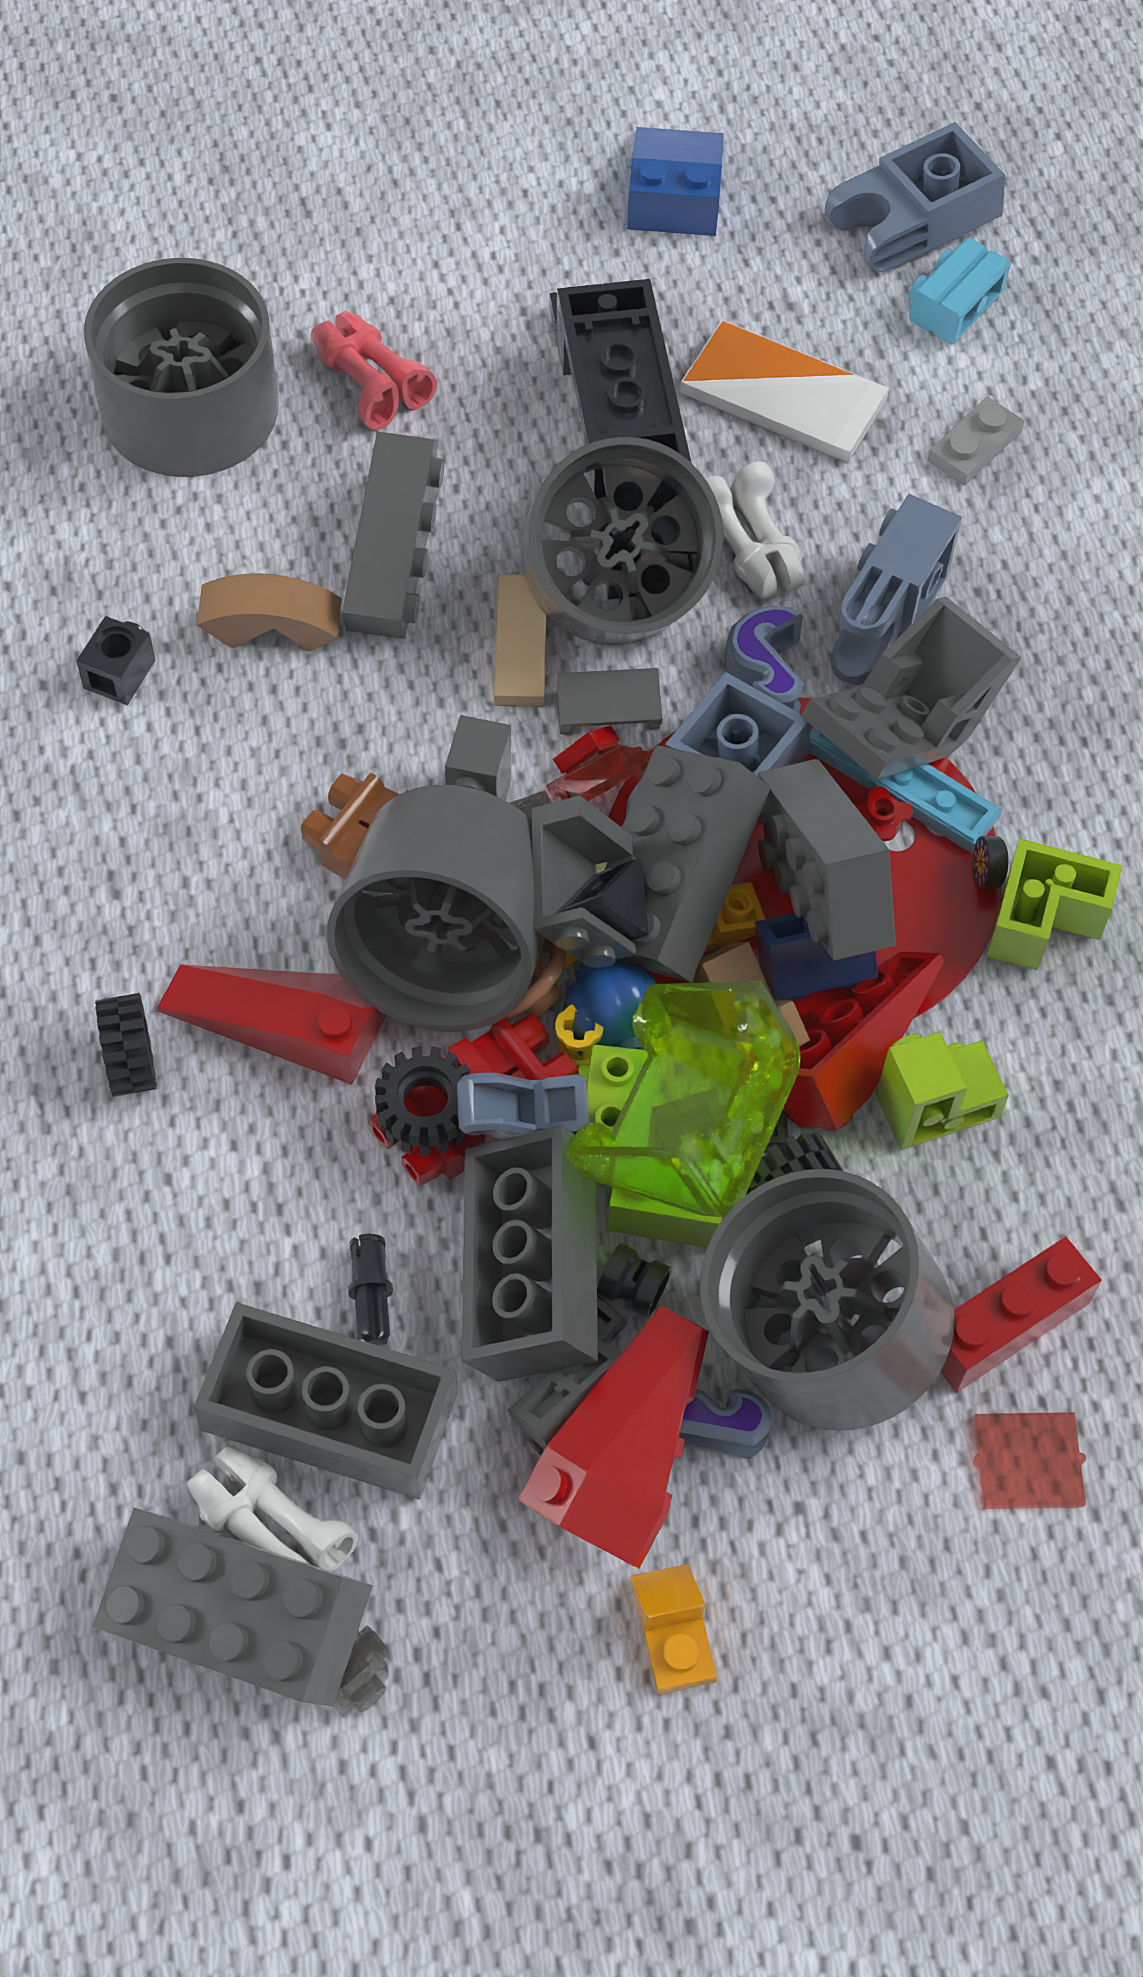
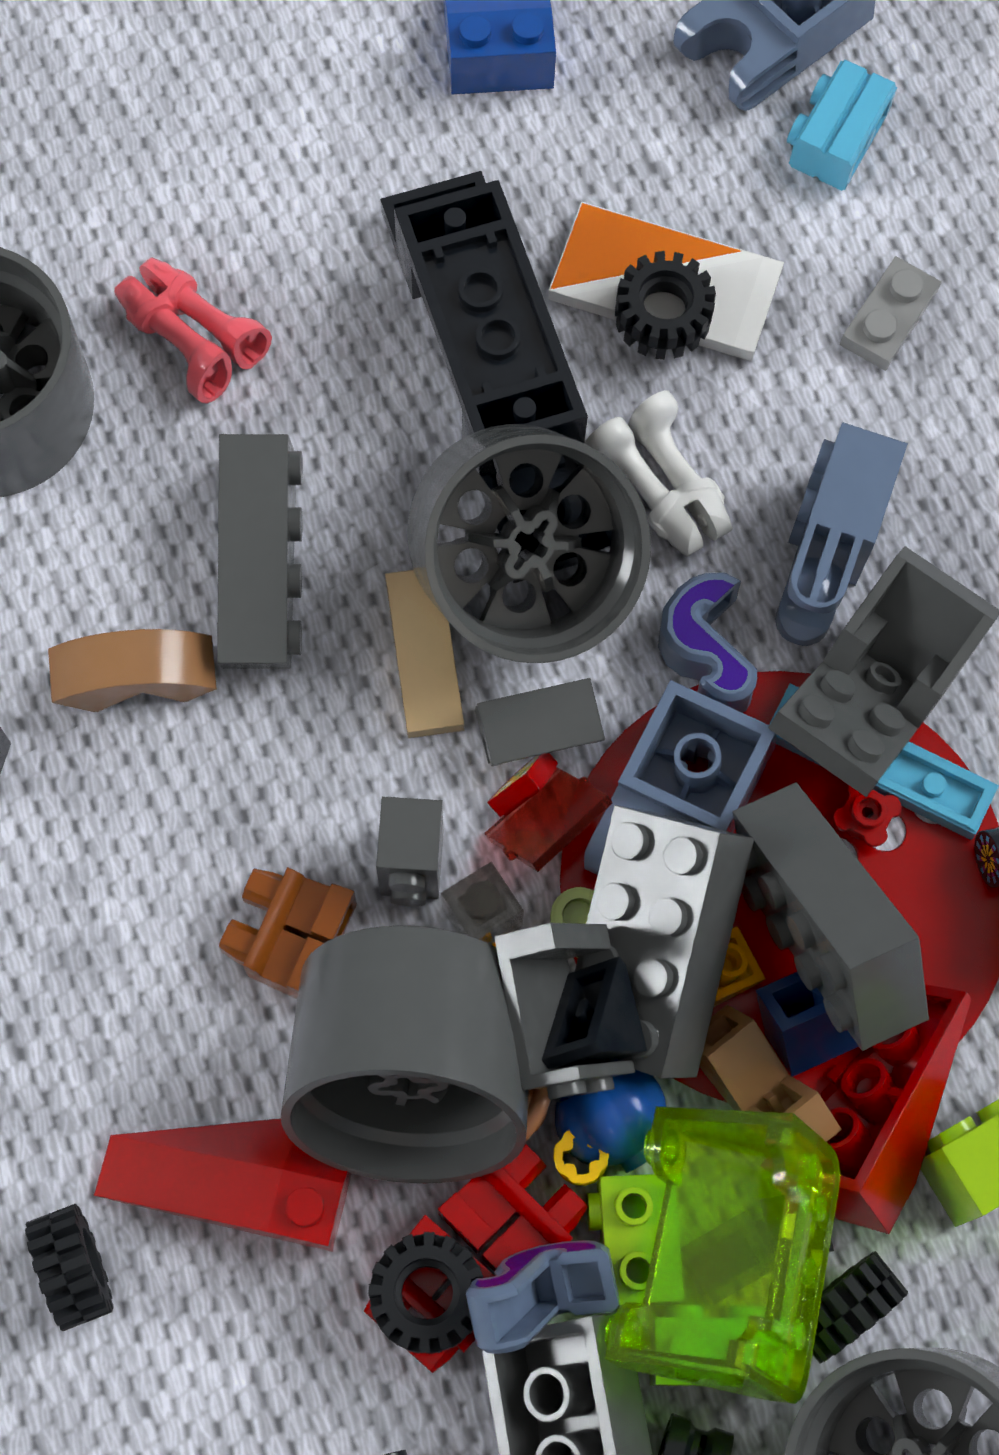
camera: 10 degrees left, 10 degrees up
(782, 381) = (670, 278): none -> black tyre

